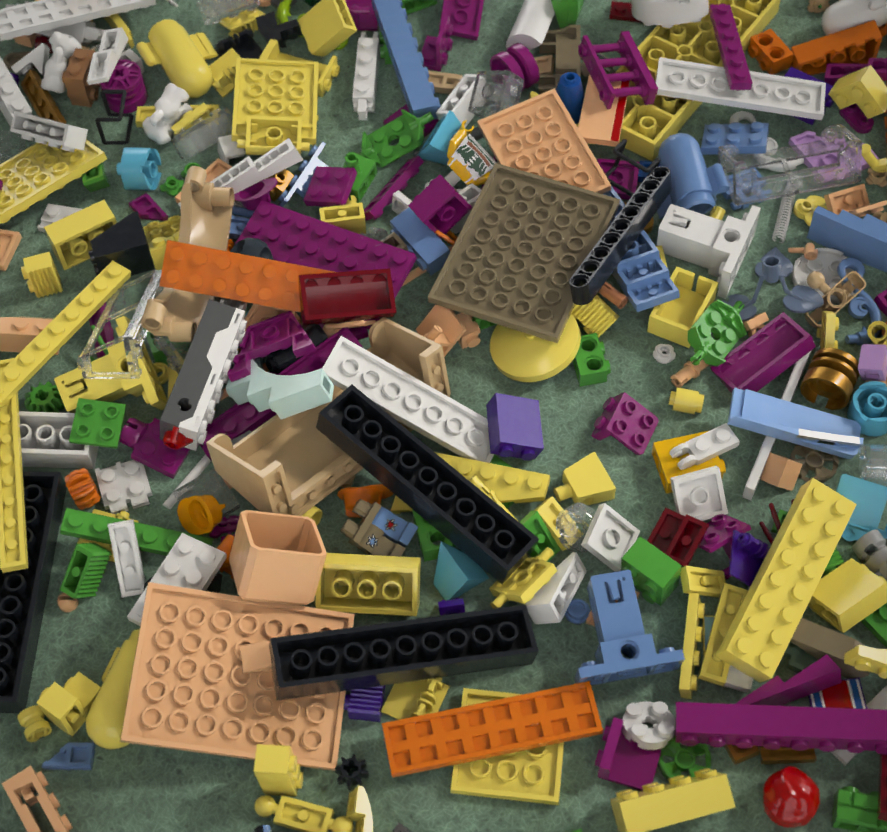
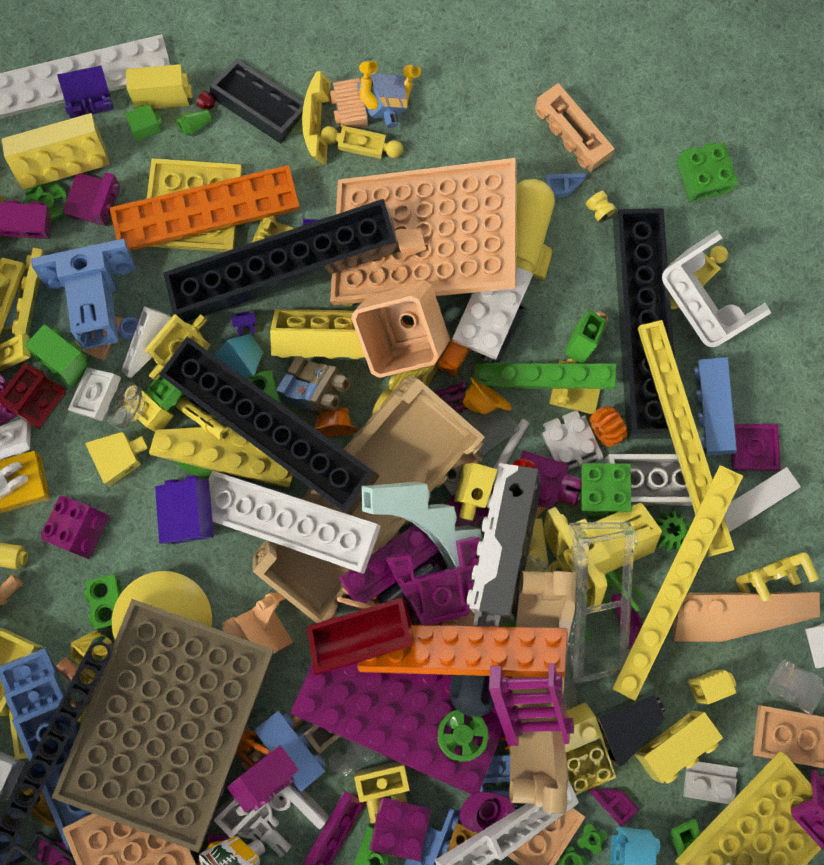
camera: 170 degrees right, 20 degrees up
(69, 705) = (575, 214): light yellow brick -> none
(127, 557) = (549, 352): white tile -> none
(220, 238) = (511, 716): none -> magenta fence
(226, 417) = (476, 480): none -> light yellow torso
(269, 235) = (462, 736): none -> bright green piece
(277, 770) = (381, 153): light yellow brick -> none
(356, 776) = (319, 174): black gear -> none
(649, 712) = (61, 216): white plate -> none
(661, 357) = (32, 620): white plate -> none

